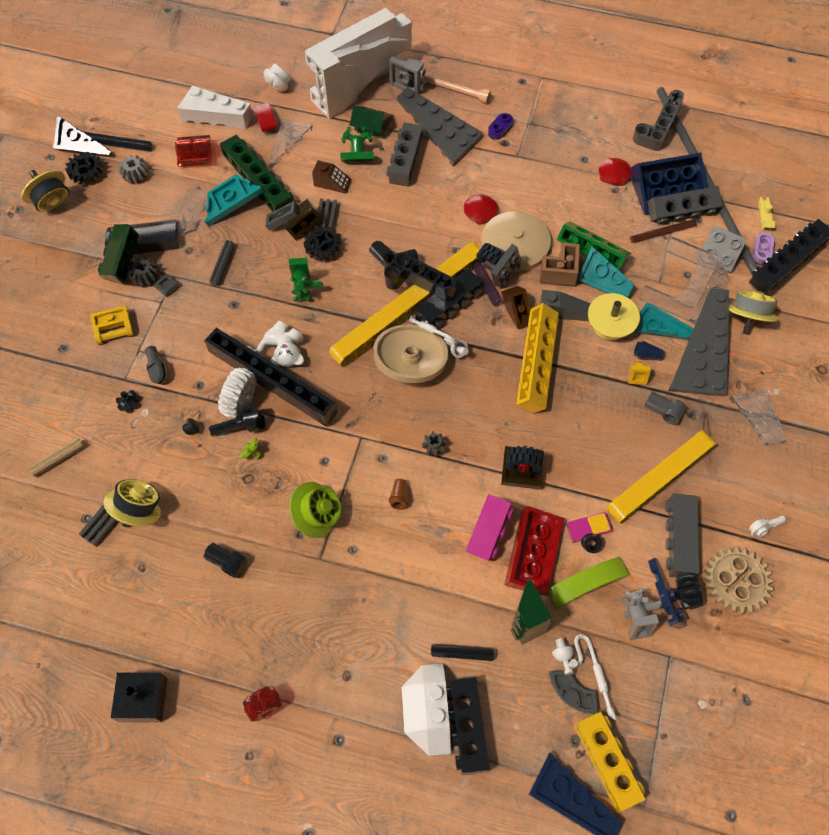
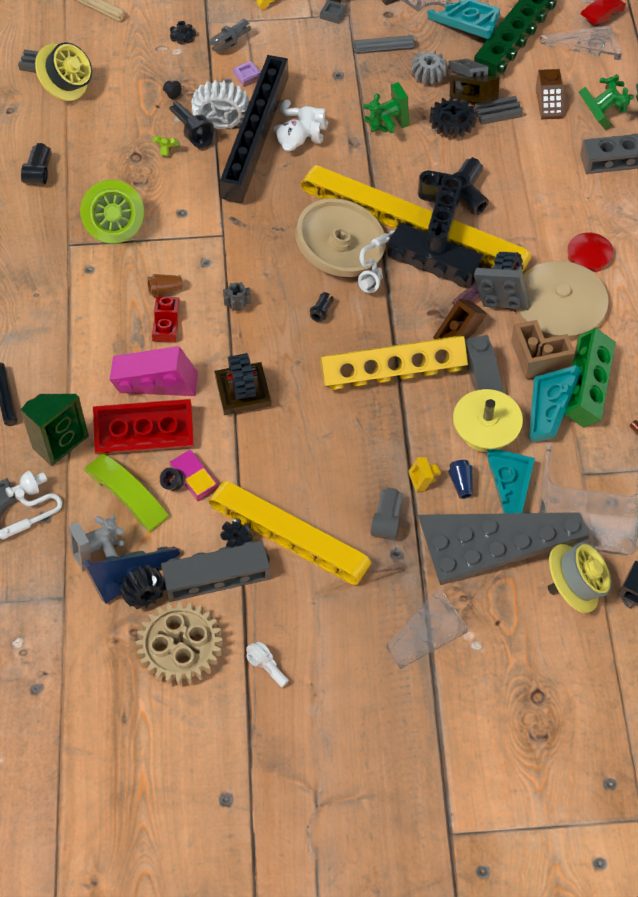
camera: 70 degrees right, 5 degrees down
(200, 367) = (246, 73): none -> lavender tile
(265, 241) = (429, 68): none -> light grey gear
(432, 504) = (165, 319): none -> red slope
(469, 392) = (319, 311): none -> black pin
(654, 511) = (236, 533): none -> black plant

